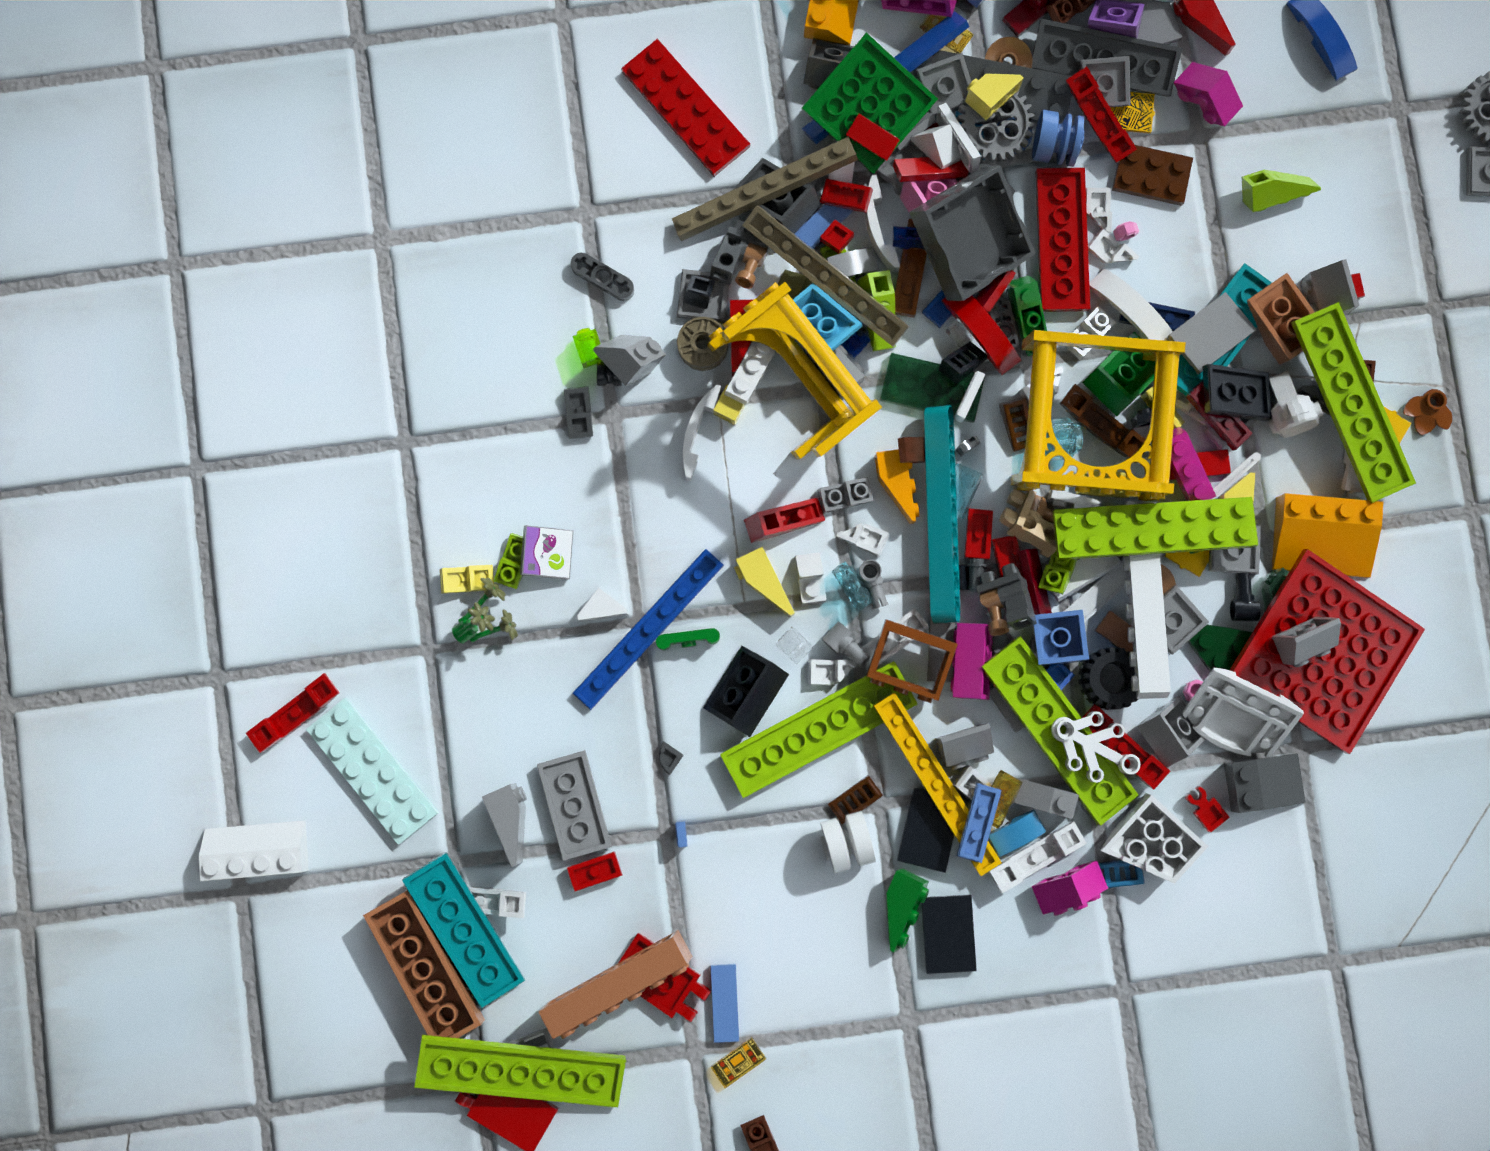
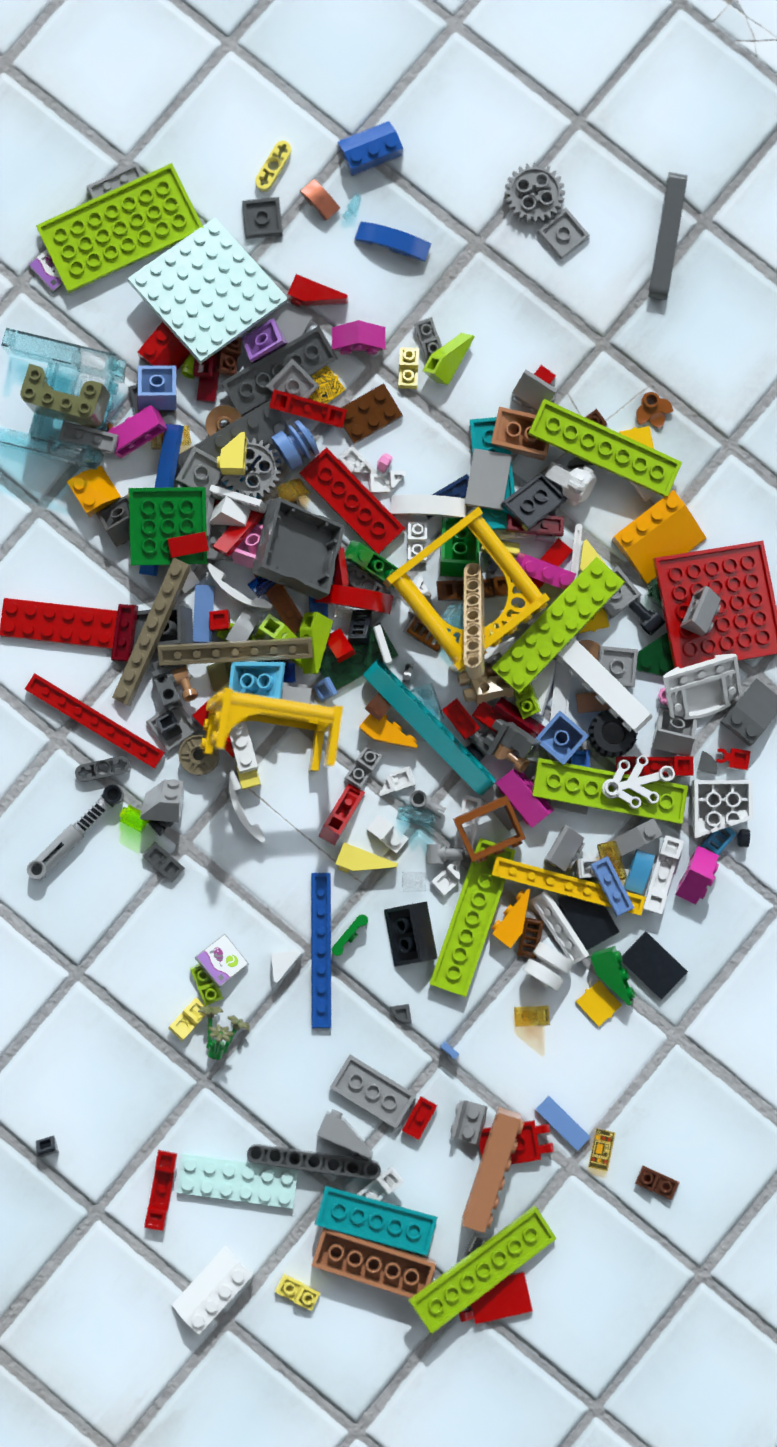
camera: 40 degrees left, 0 degrees up
(228, 575) = (46, 1146): none -> black slope
(331, 927) = (297, 1292): none -> light yellow slope
(447, 813) = (304, 1161): none -> dark grey beam
(519, 310) = (73, 834): none -> piece
(636, 225) = (94, 721): none -> red plate
(637, 918) = (468, 1121): none -> light grey bracket
(738, 169) = (124, 632): none -> dark red tile
(789, 874) = (532, 1015): none -> clear yellow slope
(846, 195) = (203, 591): red plate -> none
(849, 771) = (512, 924): none -> light orange slope
(863, 921) = (598, 1003): none -> yellow piece
(877, 389) = (325, 689): none -> medium blue tile
(892, 815) = (559, 927): none -> white plate
(923, 328) = (319, 628): none -> lime slope
(927, 361) = (340, 645): none -> red tile
(1018, 178) = (293, 490): none -> clear yellow slope
(1079, 448) = (474, 621): none -> tan beam
(1147, 894) = (743, 838): none -> black tile
(1176, 791) = (707, 763): none -> dark grey tile
(1229, 165) = (408, 368): none -> light yellow slope
(1275, 151) = (427, 336): none -> light grey slope

